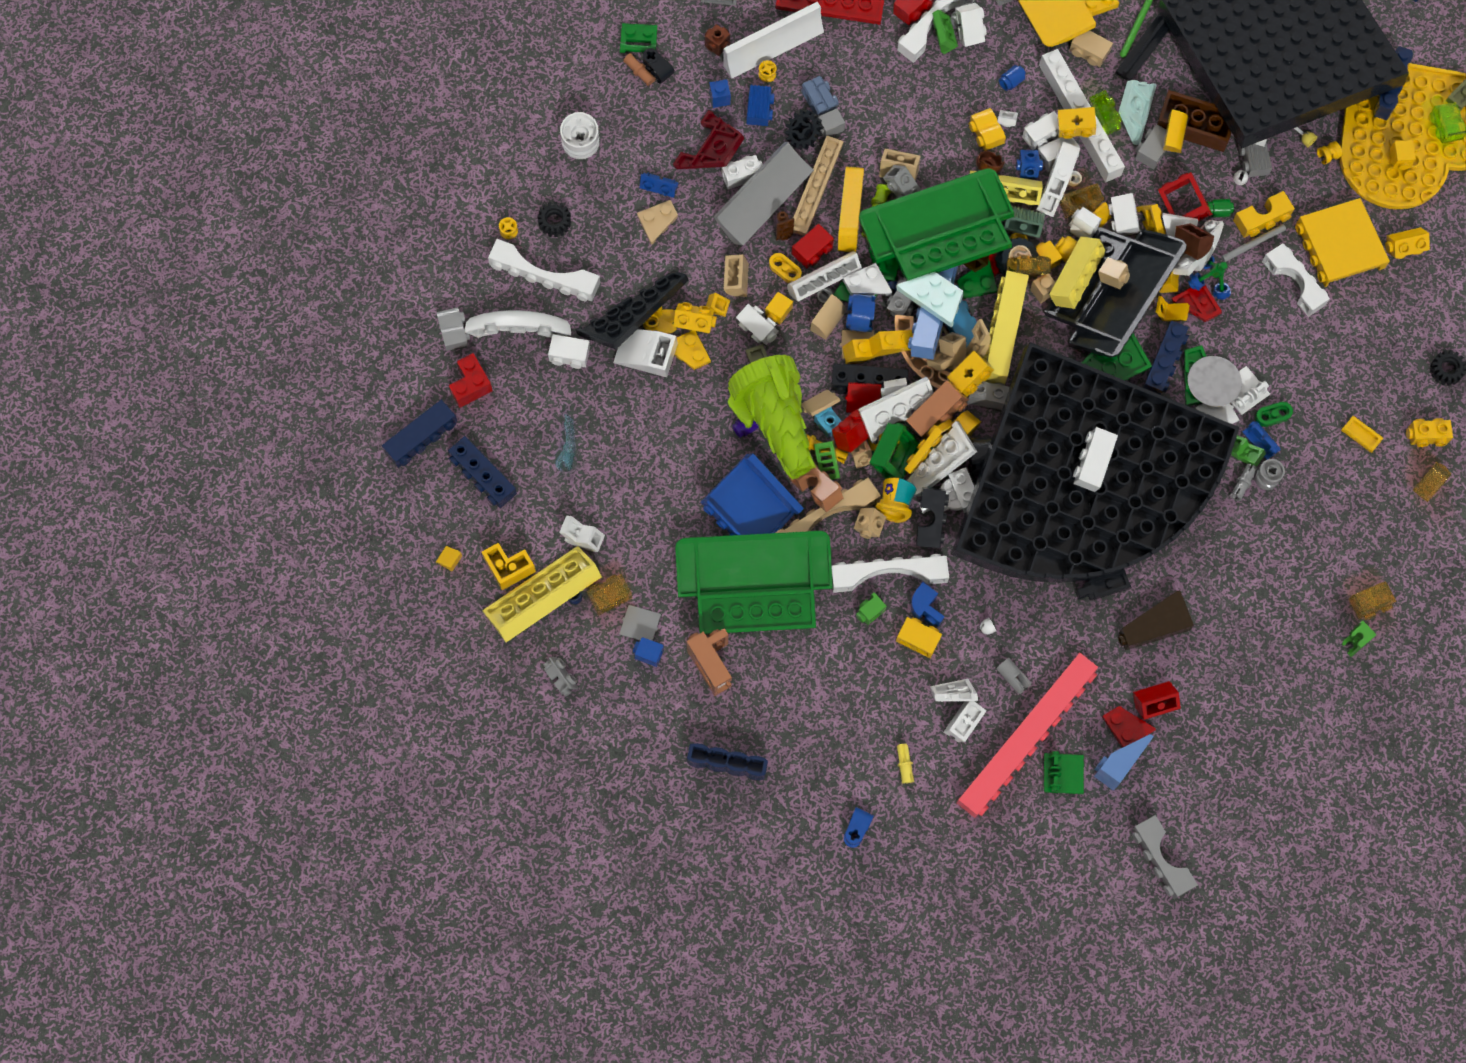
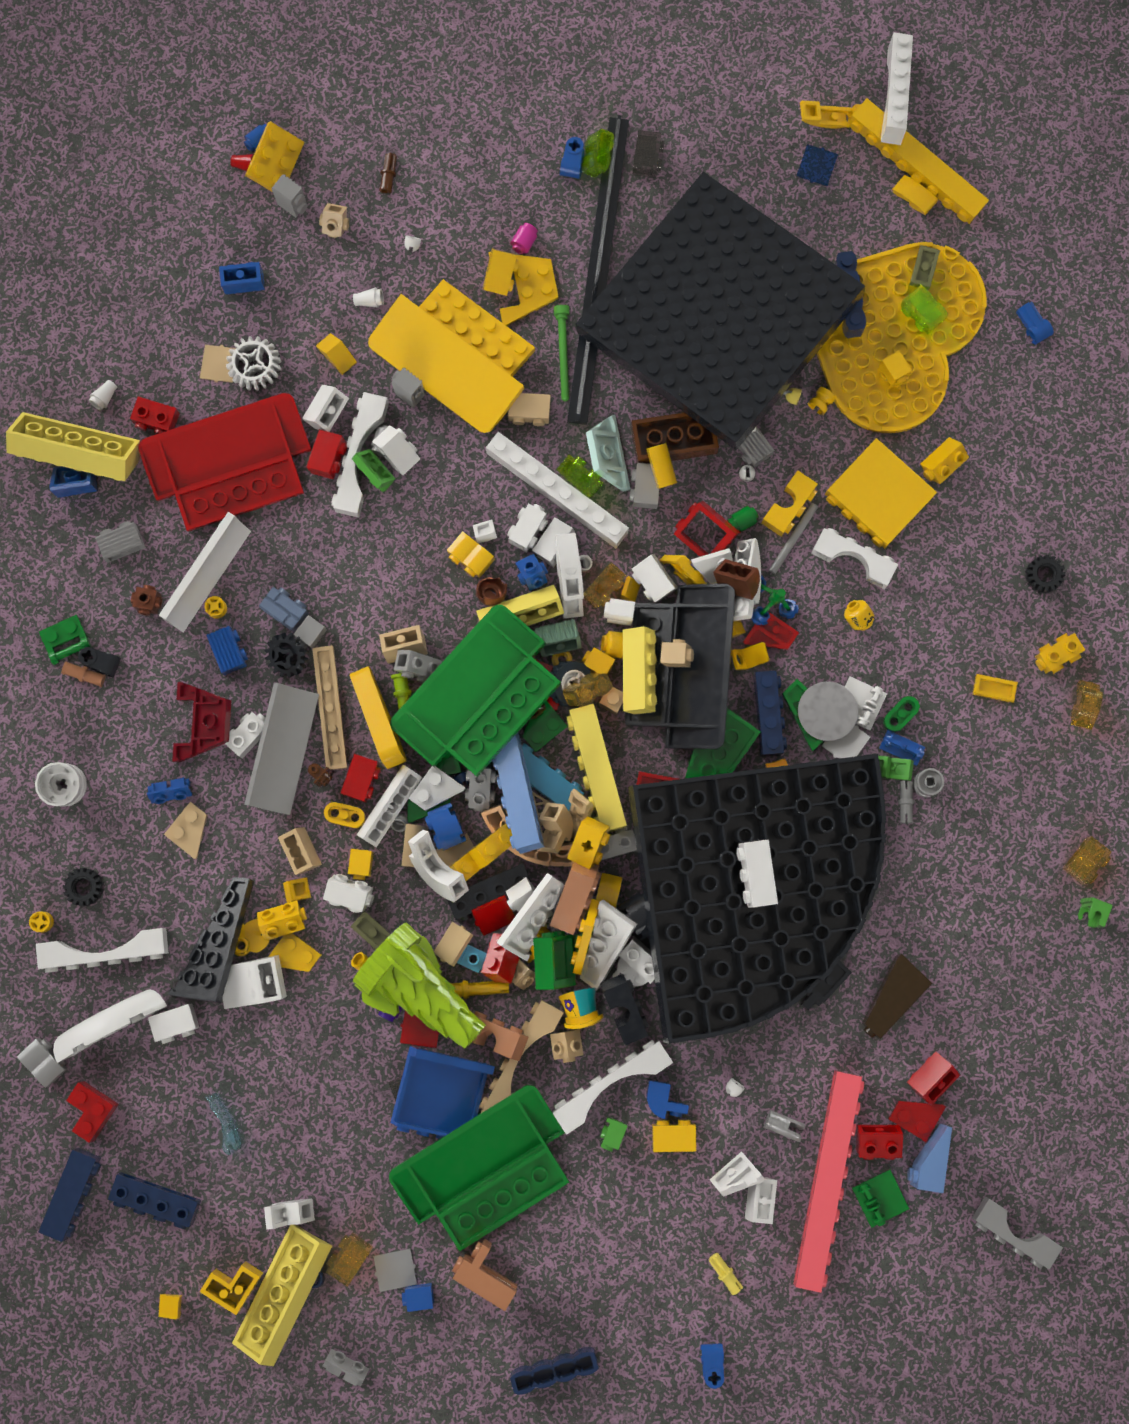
camera: 25 degrees left, 10 degrees up
(719, 93) = (180, 659): blue brick -> none
(761, 450) = (417, 1033): none -> red piece
(830, 444) = (485, 987): bright green slope -> none
(833, 336) = (433, 870): none -> white arch
(934, 295) = (511, 779): light aqua wing -> none
(1012, 77) = (467, 484): blue brick -> none
(1083, 116) = (562, 498): yellow brick -> none
(1086, 726) = (879, 1141): none -> red brick
(1278, 322) = (859, 615): none -> yellow head

